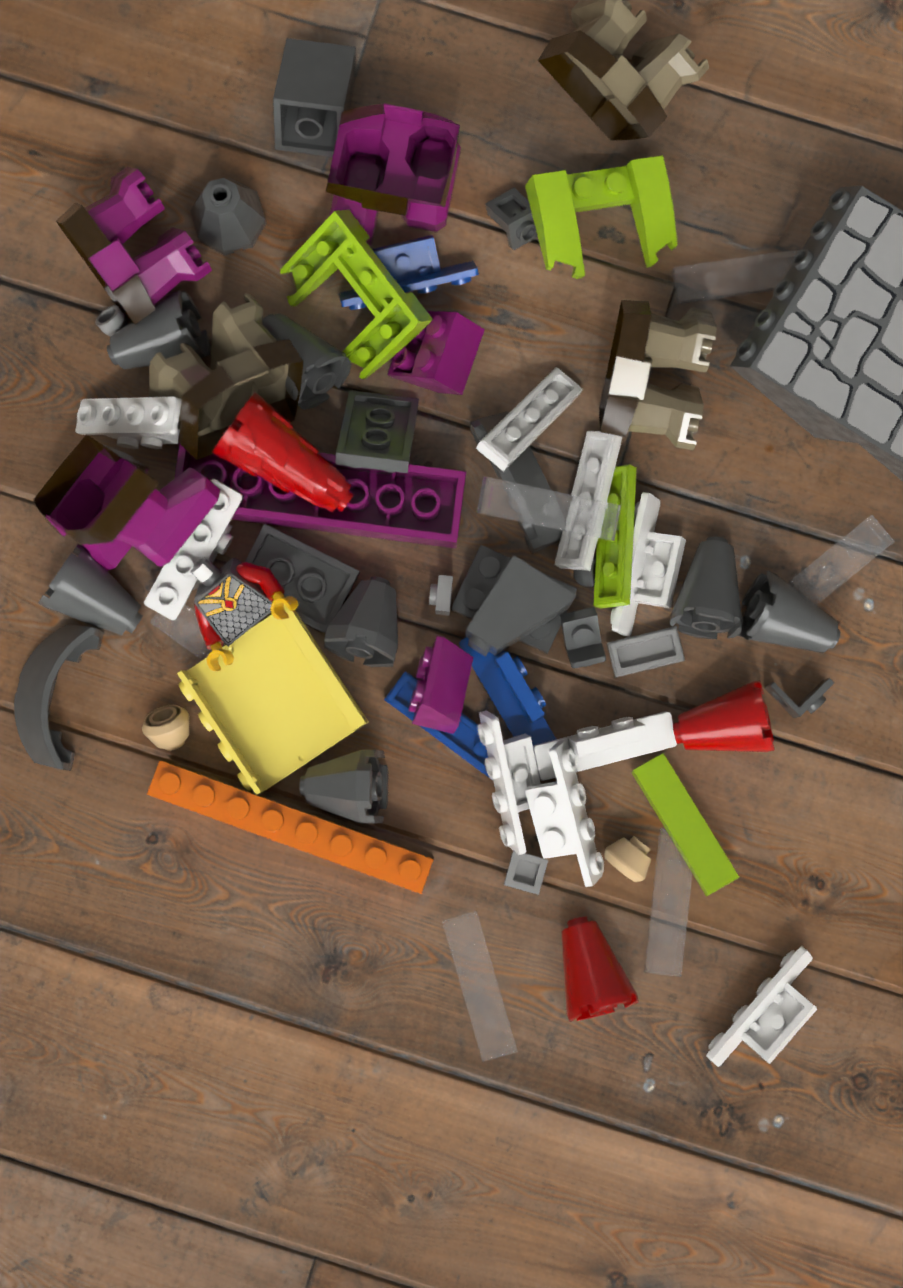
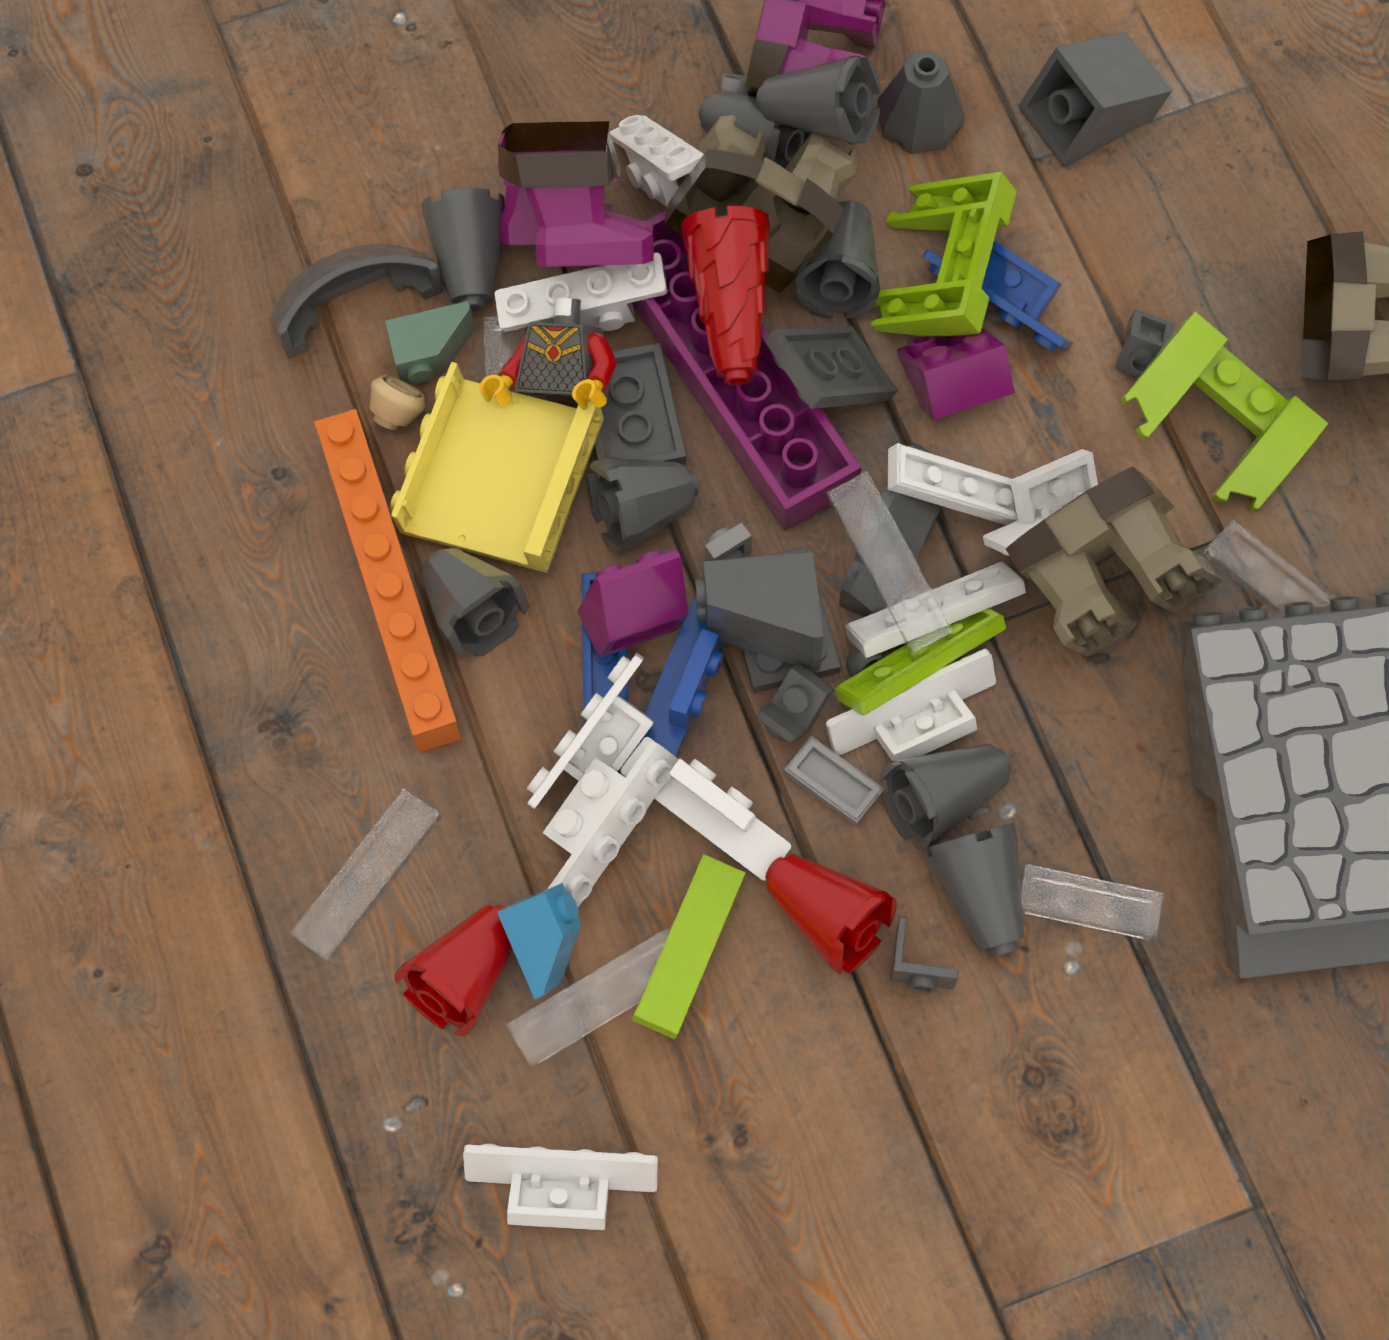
camera: 55 degrees right, 15 degrees down
(139, 673) = (428, 340): none -> sand green slope
(199, 286) = (825, 99): none -> dark grey cone
(394, 164) = (1101, 183): magenta piece -> none
(526, 872) = (516, 830): light grey plate -> none
(583, 365) = (1043, 493): none -> white bracket
(610, 910) = (542, 936): none -> dark azure slope
(629, 858) = (610, 917): tan cone -> none

